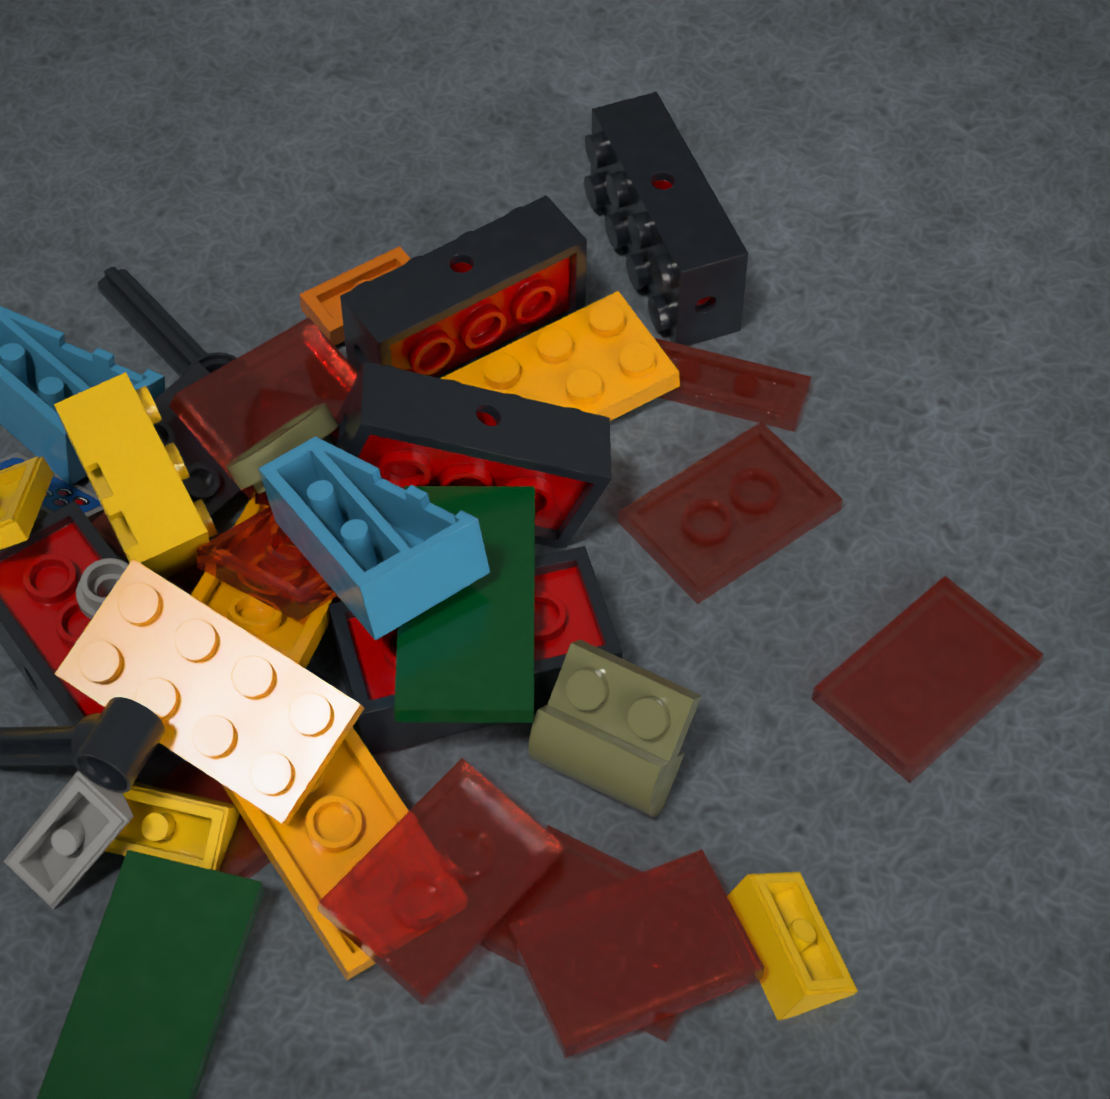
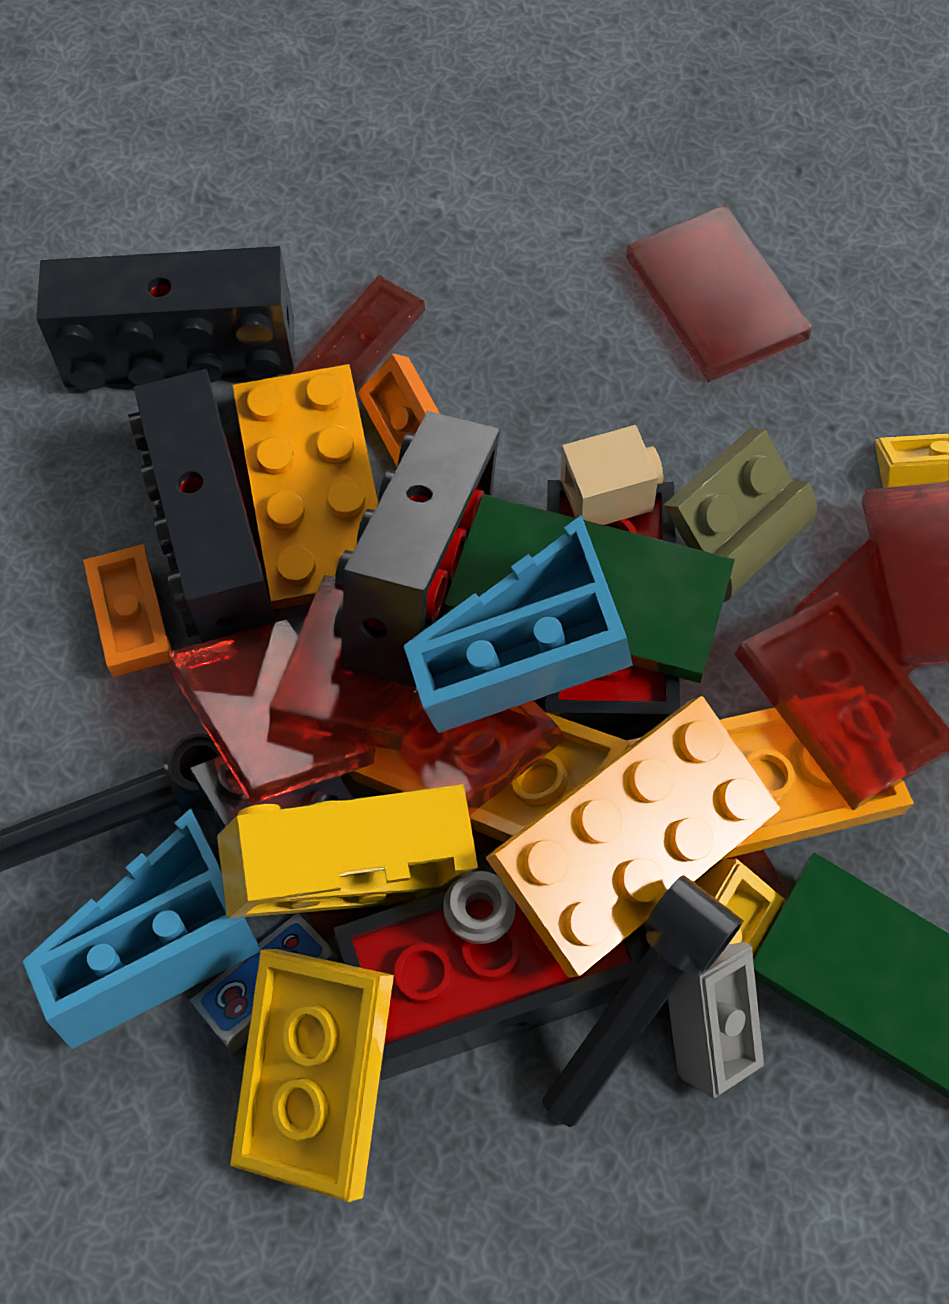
camera: 70 degrees left, 10 degrees up
(314, 422) = (372, 693): olive plate -> none
(586, 579) = (610, 476): none -> tan brick
(655, 433) = (396, 401): none -> orange plate
(729, 512) = (501, 375): clear red tile -> none

